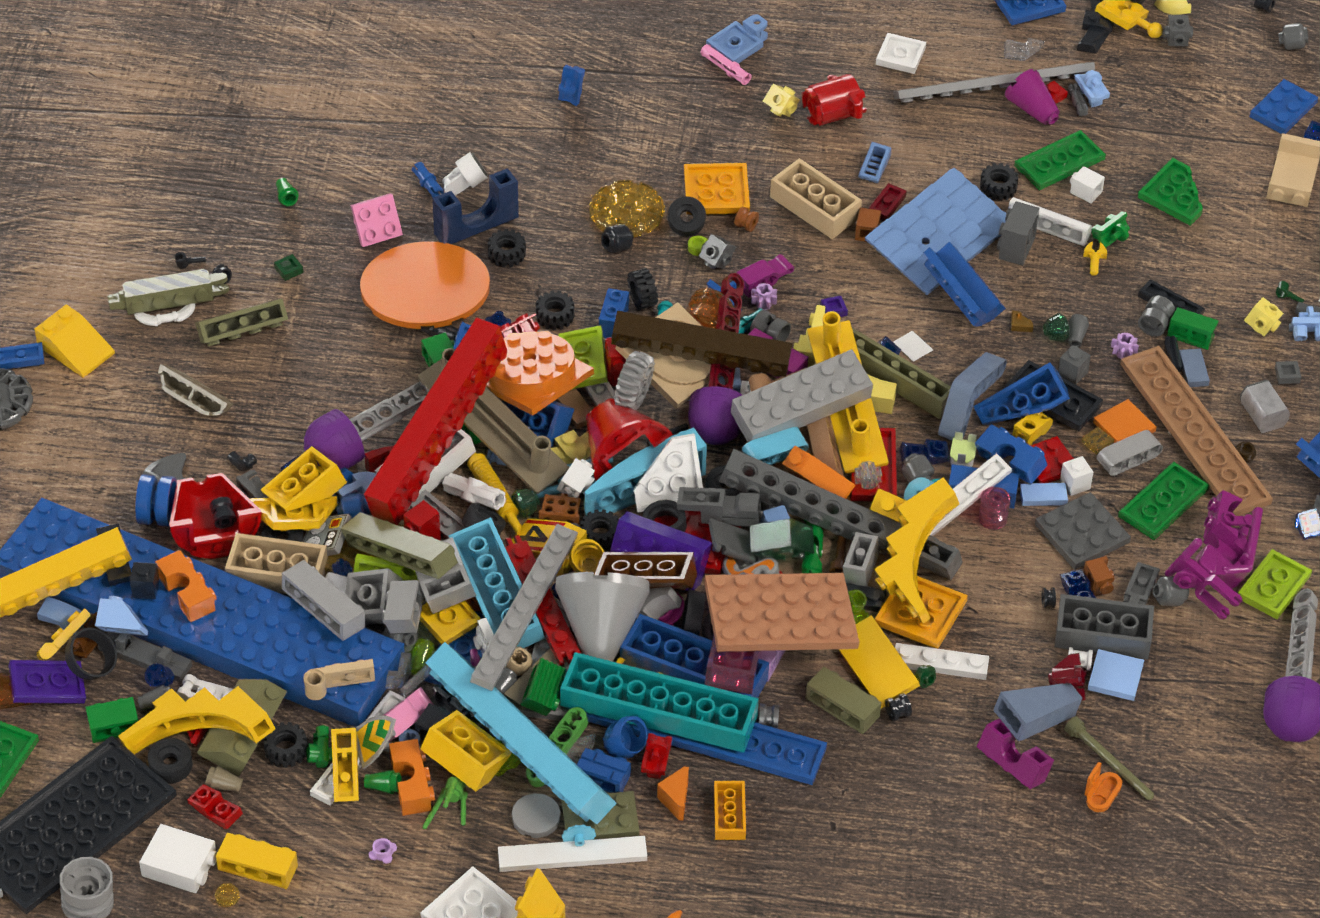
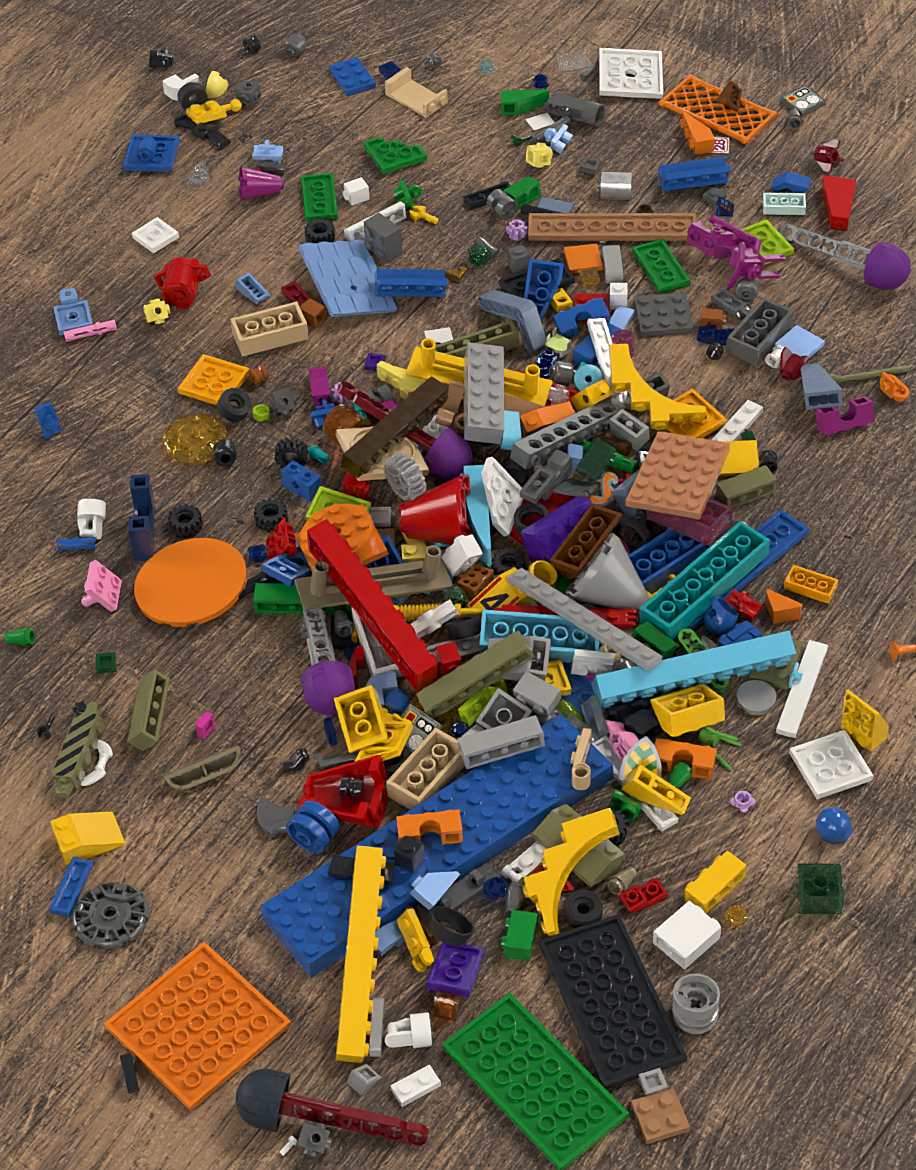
camera: 60 degrees left, 0 degrees up
(249, 372) = (205, 725): none -> dark pink plate
(985, 83) = (219, 203): light grey plate -> none

